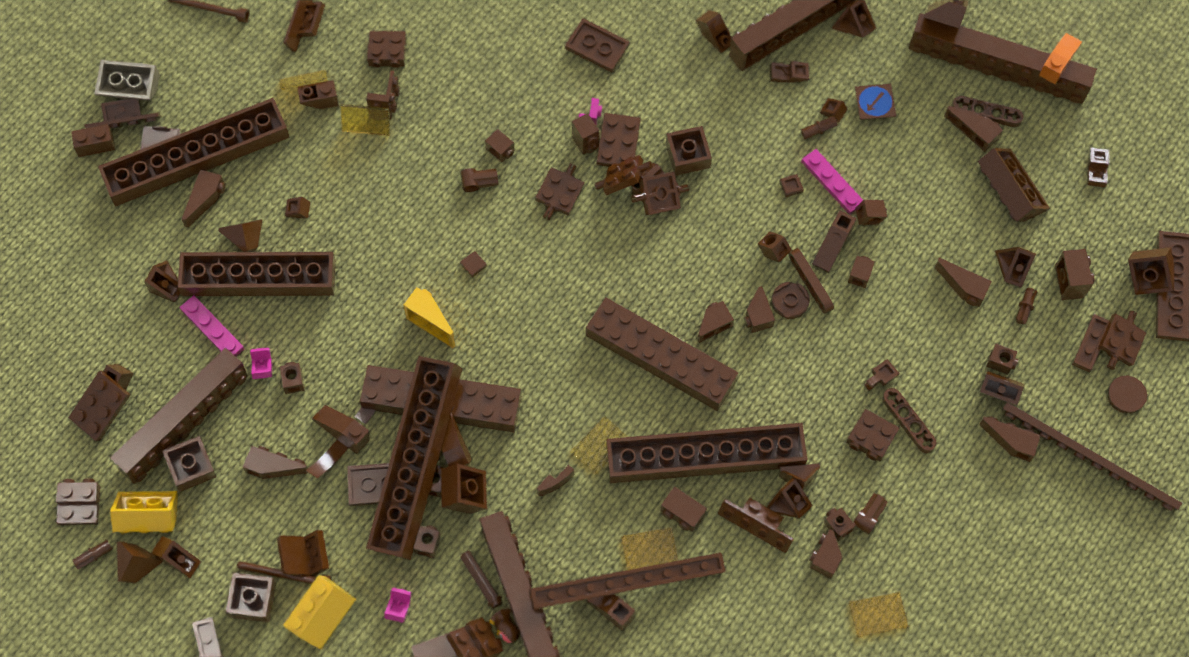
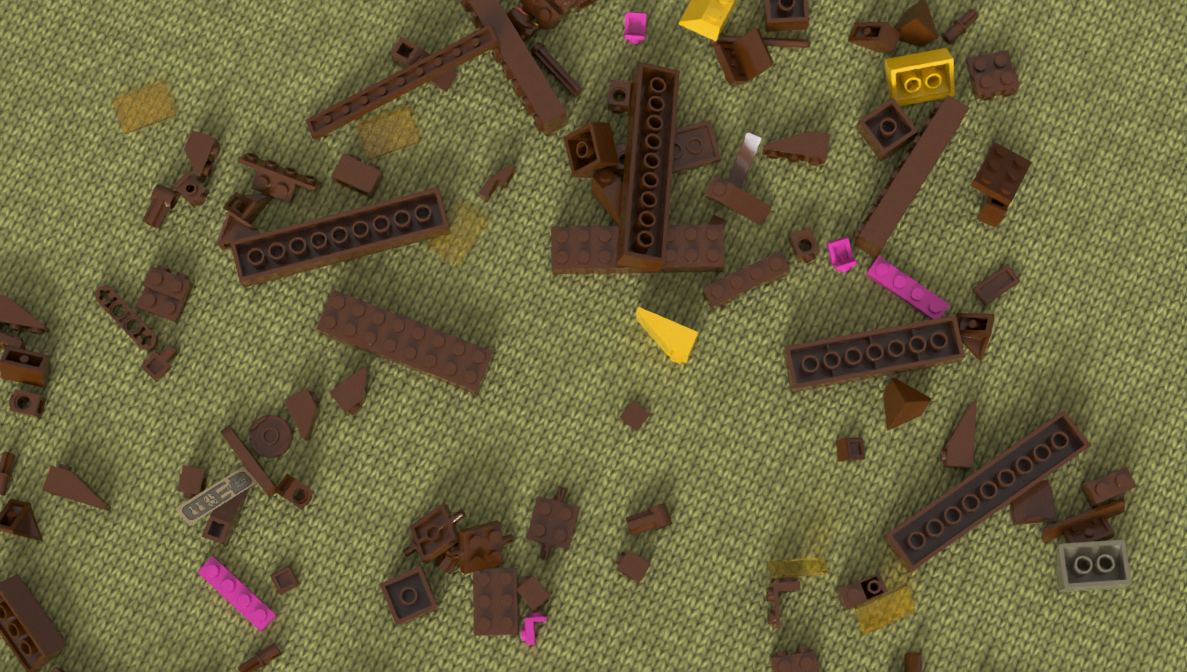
camera: 175 degrees right, 10 degrees up
(134, 319) = (996, 285): none -> reddish brown tile
(370, 349) = (755, 275): none -> reddish brown arch
(842, 252) = (216, 495): none -> sticker
(871, 212) = (187, 556): reddish brown brick -> none

